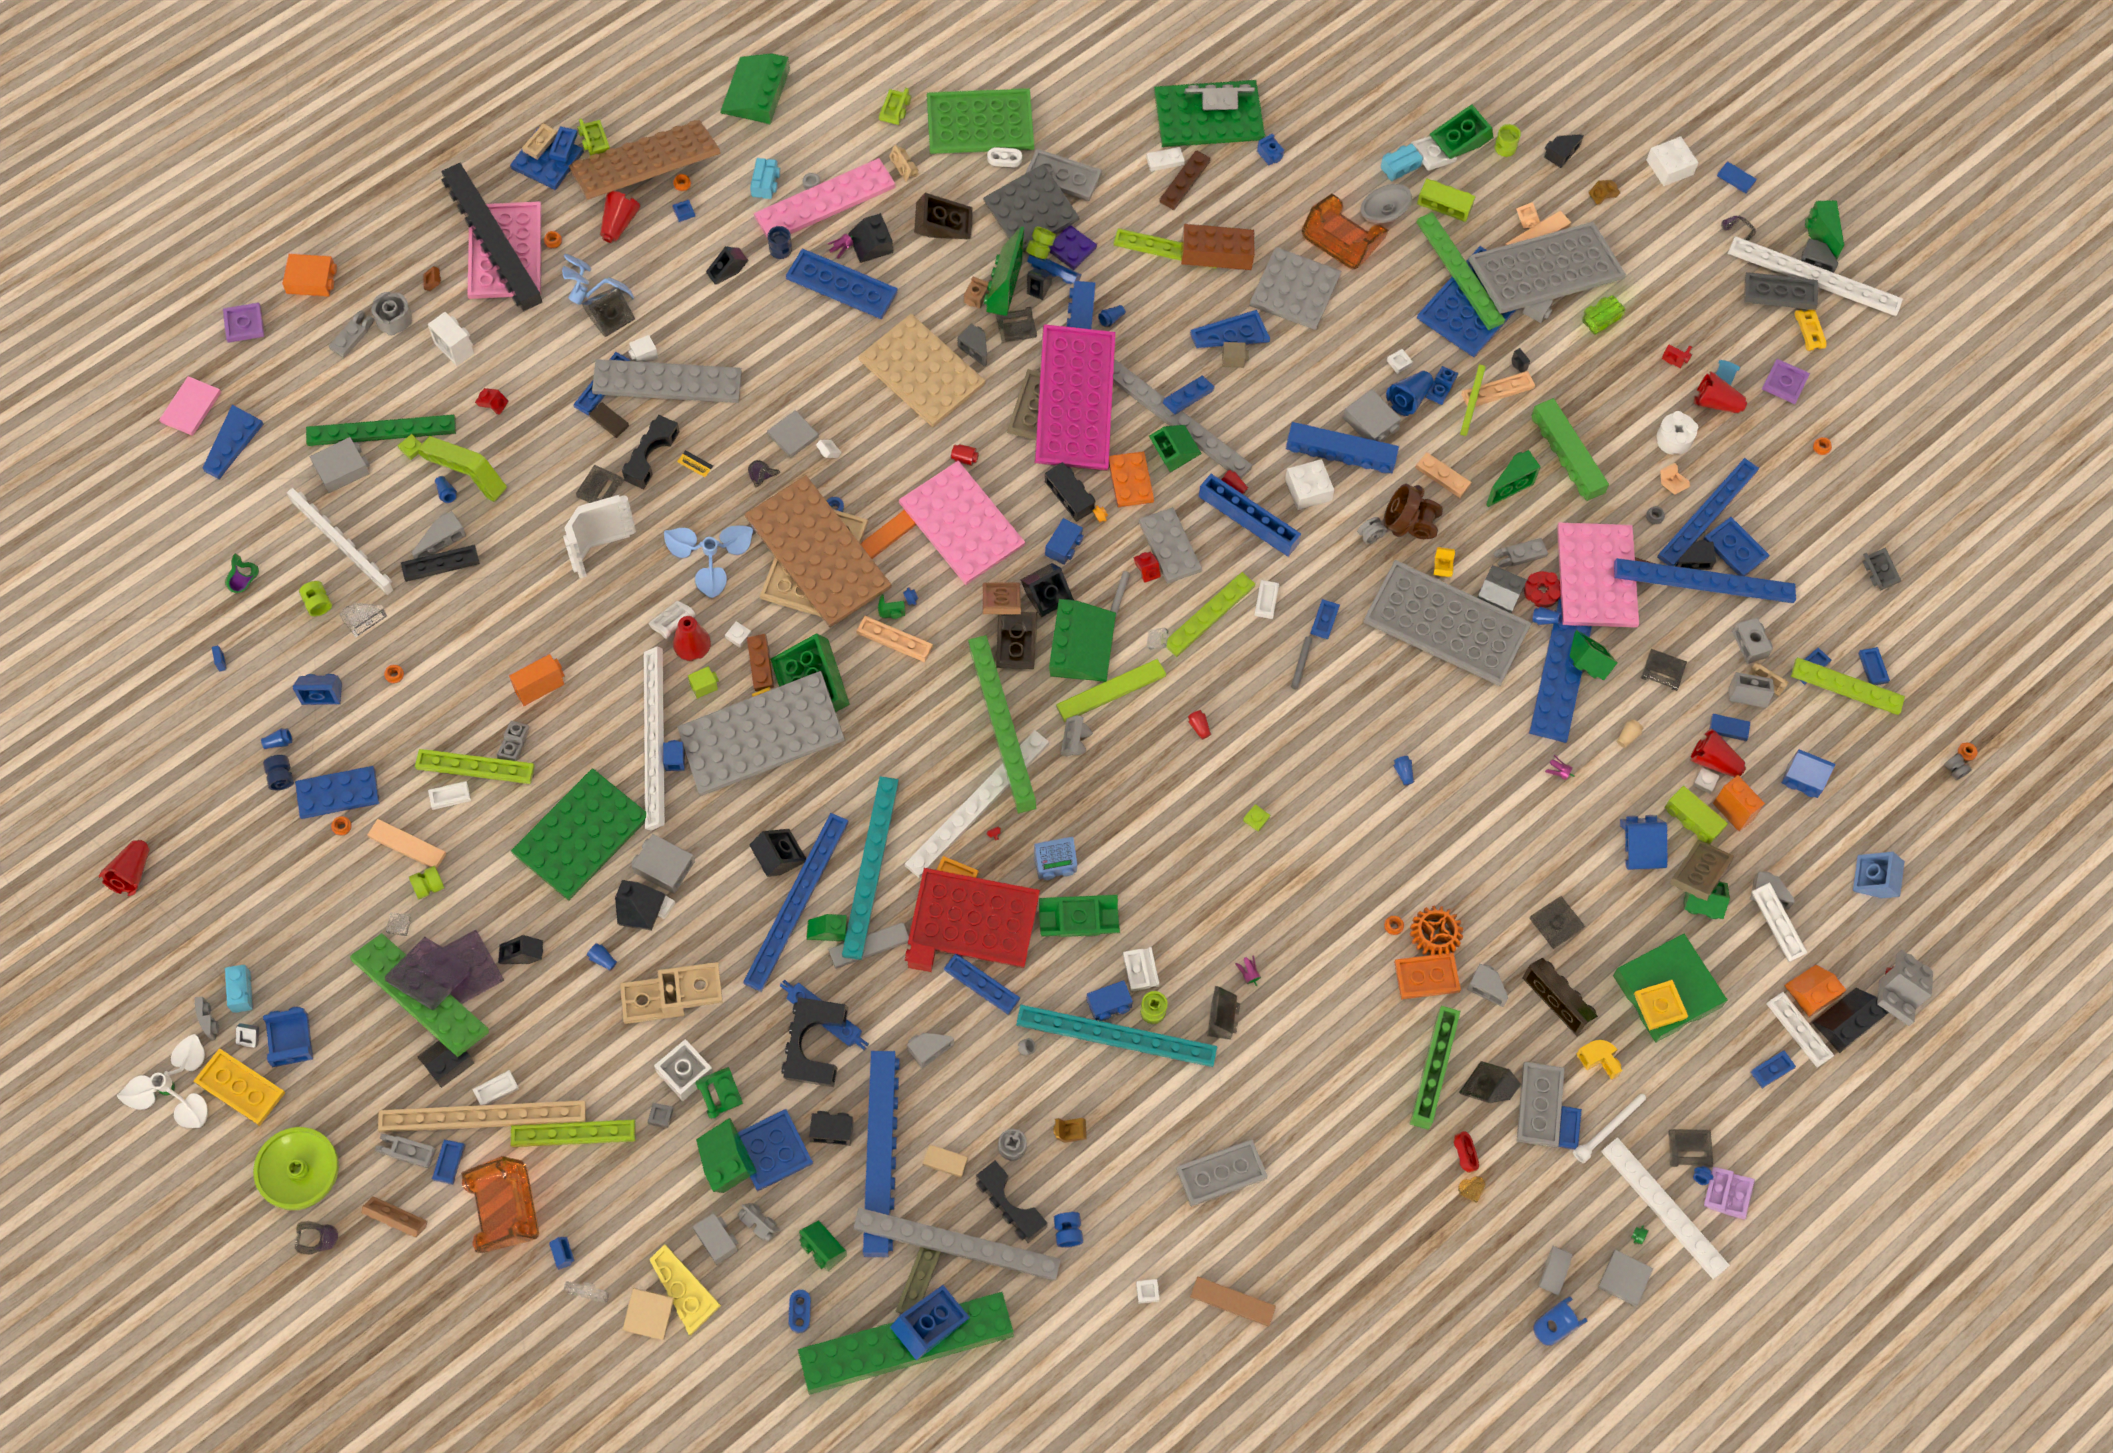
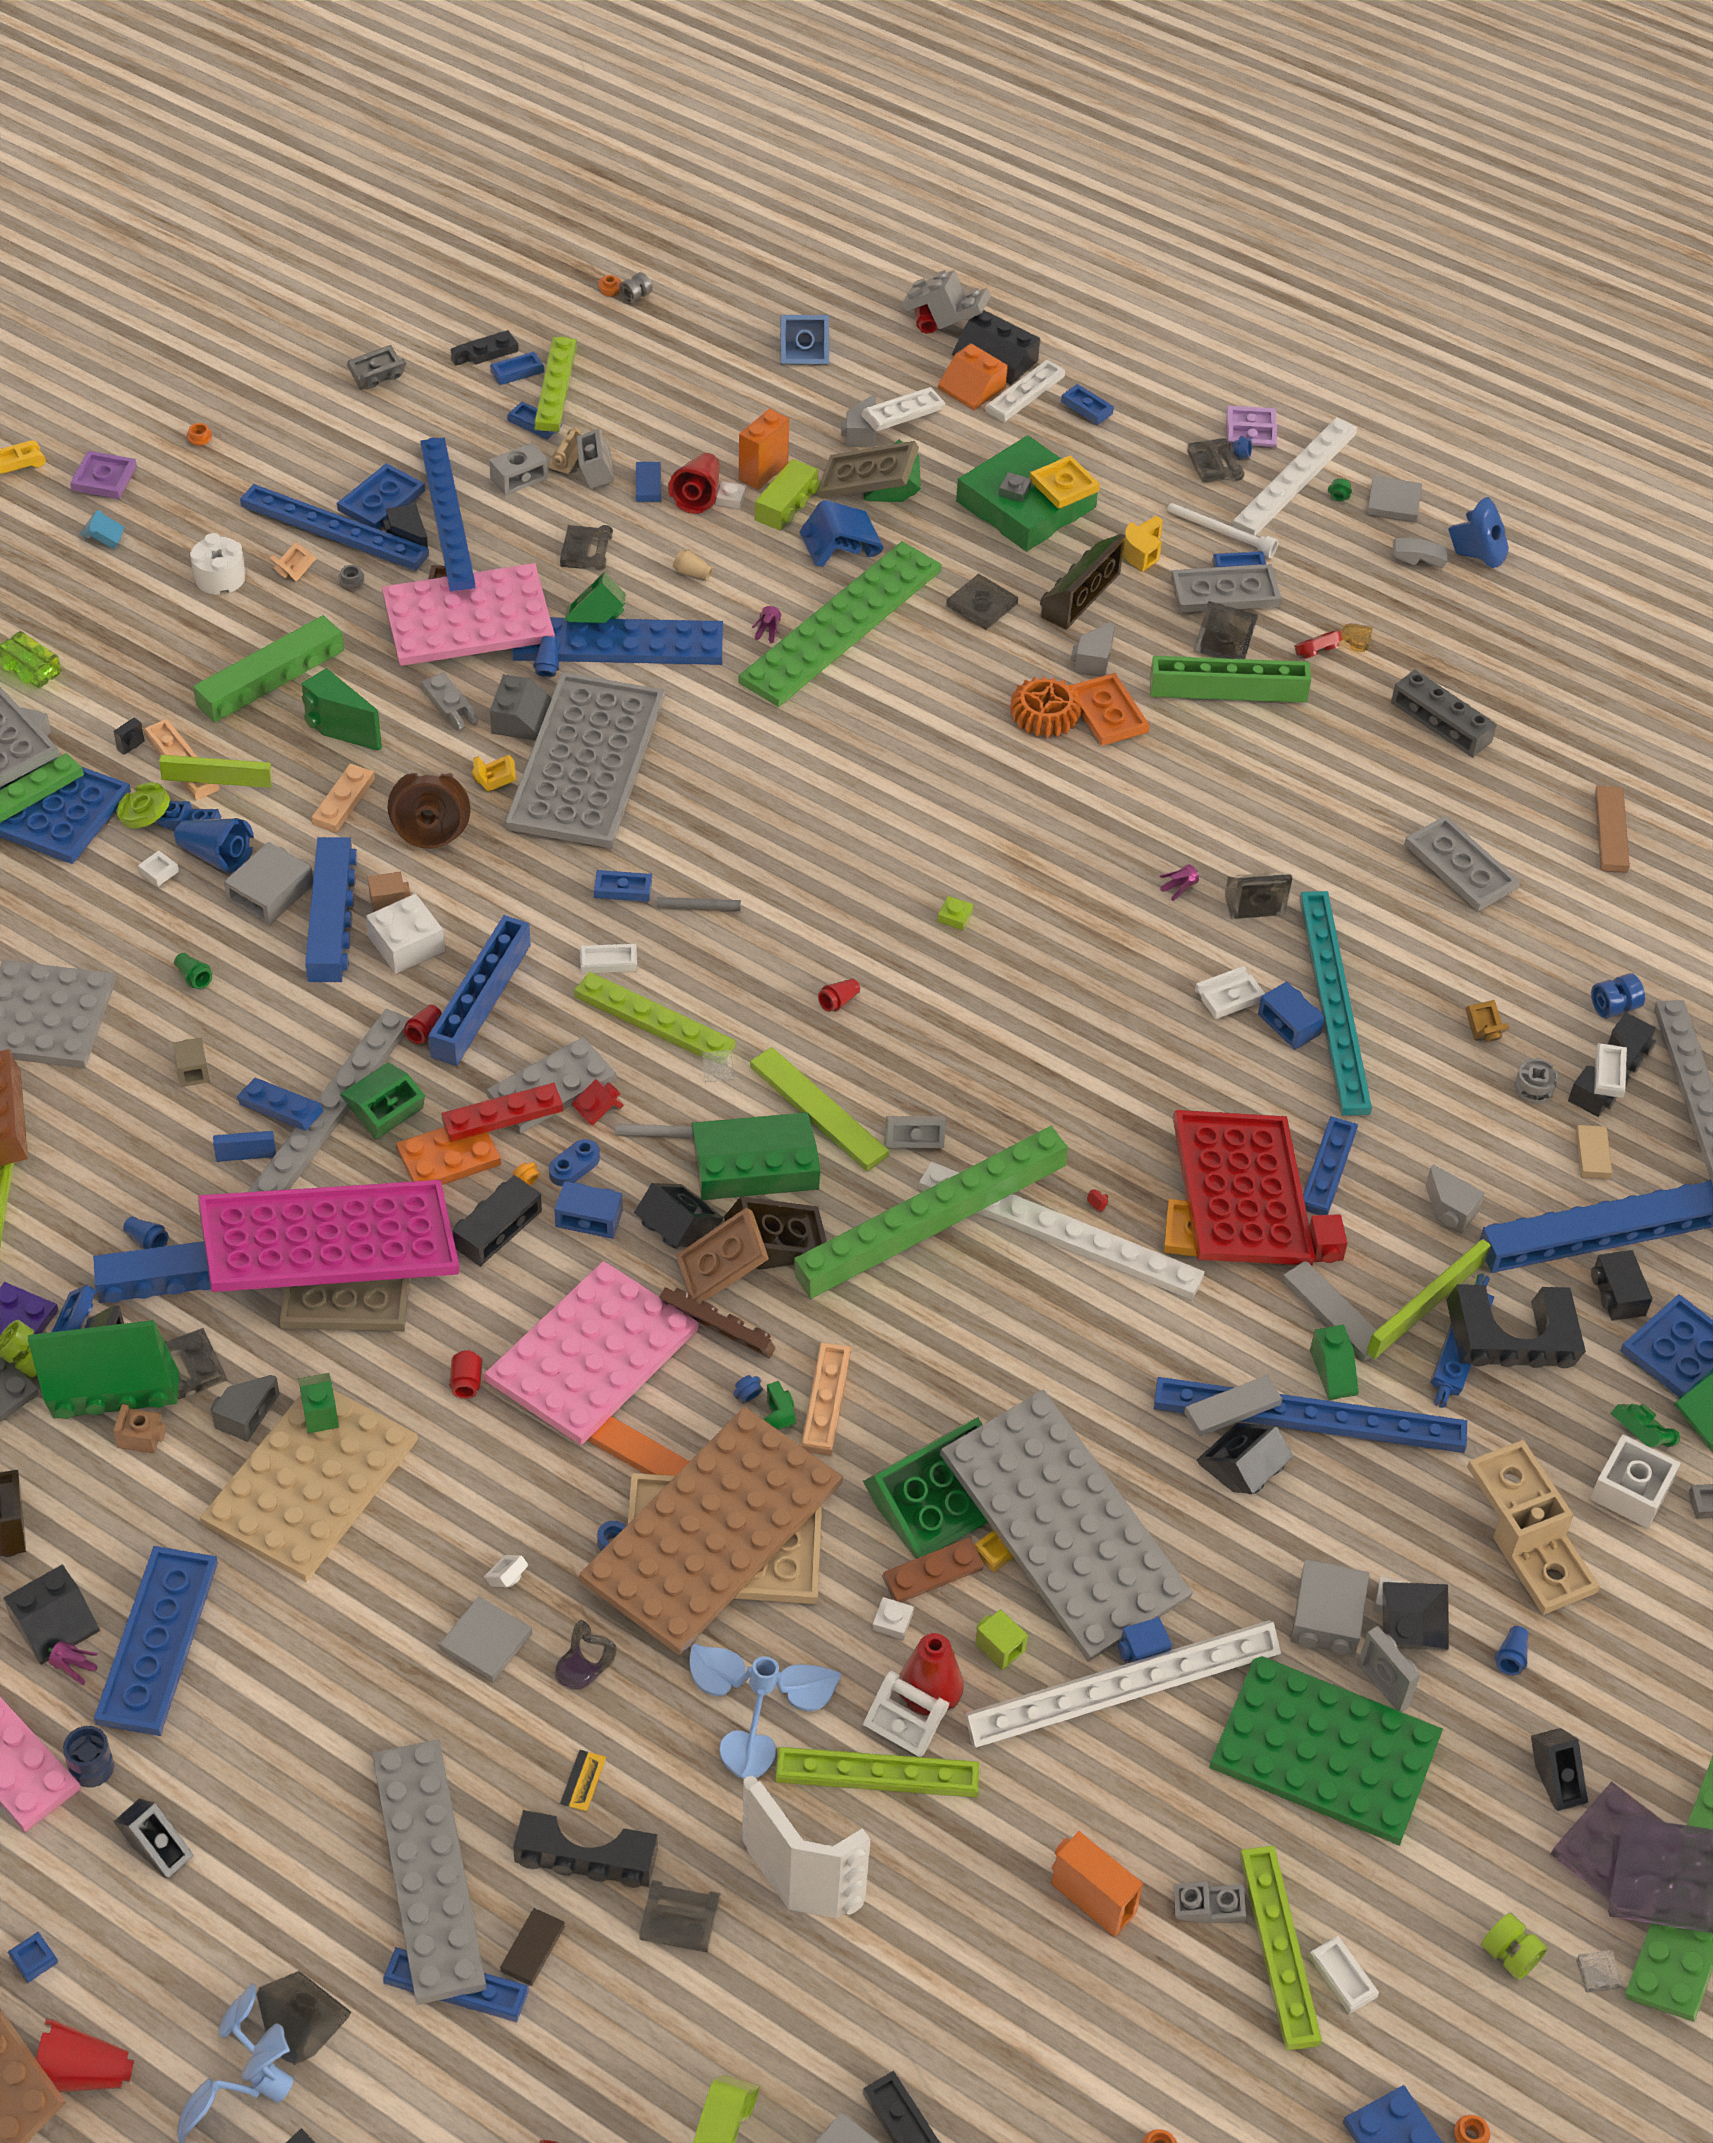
camera: 105 degrees left, 15 degrees down
(406, 844) = (1457, 2013): light nougat tile -> none
(607, 874) = (1388, 1669): none -> light grey plate
(643, 350) = (373, 1926): white brick -> none
(648, 602) = (877, 1772): none -> lime tile
(811, 853) = (1233, 1405): none -> light grey tile
(854, 998) = (1427, 1299): none -> lime tile
(870, 868) = (1211, 1333): teal plate -> none
(960, 590) = (729, 1326): none -> reddish brown plate
(963, 373) = (318, 1402): none -> green slope
(997, 1186) = (1610, 1070): none -> white tile
(1026, 1046) = (1396, 1094): light grey hinge -> none
(1055, 858) = (1114, 1110): medium blue slope -> none
(1079, 915) = (1188, 1069): green piece -> none
(1104, 543) = (576, 1161): none -> blue plate
(1147, 507) = (502, 1112): none -> red plate
(1147, 1291) = (1647, 907): white plate -> none
(1153, 1007) = (1280, 962): lime wheel -> none
(1161, 372) = (244, 1146): none -> blue tile
(1242, 329) = (145, 1073): blue wing -> none
(1308, 367) = (196, 973): none -> green cone
(1348, 482) = (387, 889): none -> medium nougat brick
(1372, 530) = (465, 851): light grey wheel -> none
(1372, 1218) = (1443, 713): none -> dark grey brick
(1394, 920) = (1052, 750): orange plate -> none
(1404, 768) = (825, 770): blue cone -> none
(1455, 359) = (143, 805): none -> lime tile
(1544, 579) = (495, 662): red plate -> none
(1555, 822) = (839, 624): none -> bright green plate
(1663, 969) = (1015, 487): none -> flat silver plate
(1677, 357) = (85, 578): red bracket -> none
(1719, 395) = (144, 533): red cone -> none
(1807, 773) = (696, 401): slope -> none
(1899, 649) = (485, 349): none -> black hinge

